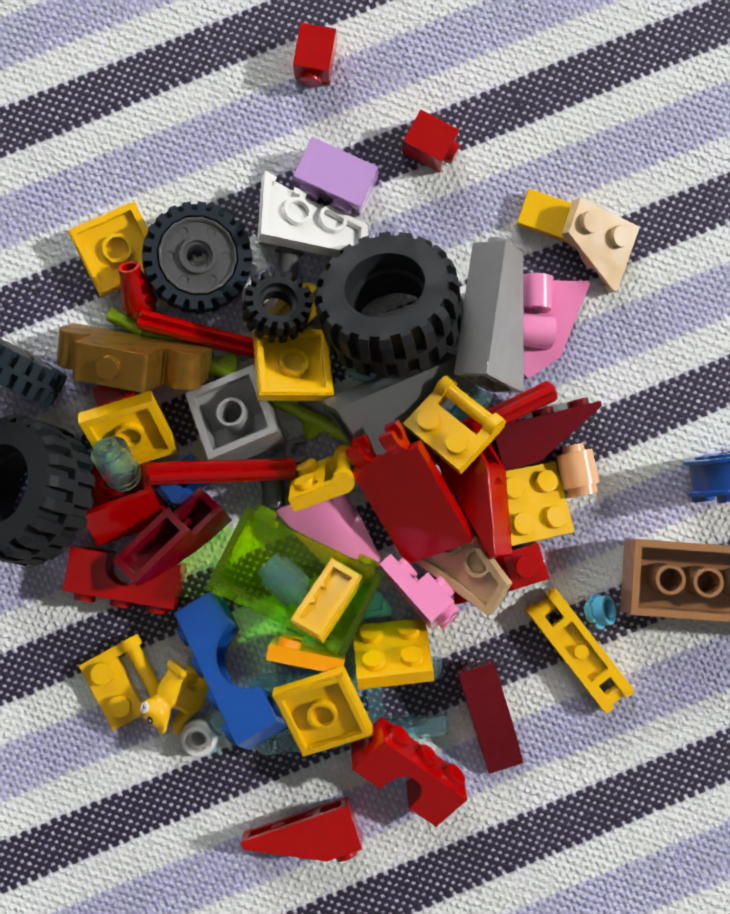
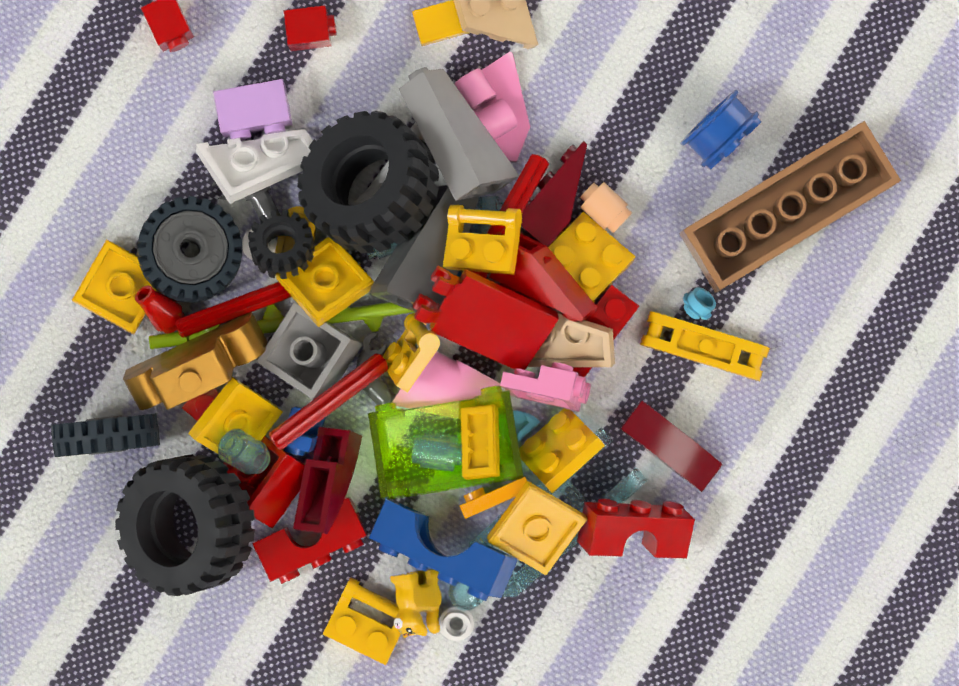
camera: 40 degrees left, 0 degrees up
(314, 834) = (599, 631): red slope -> none

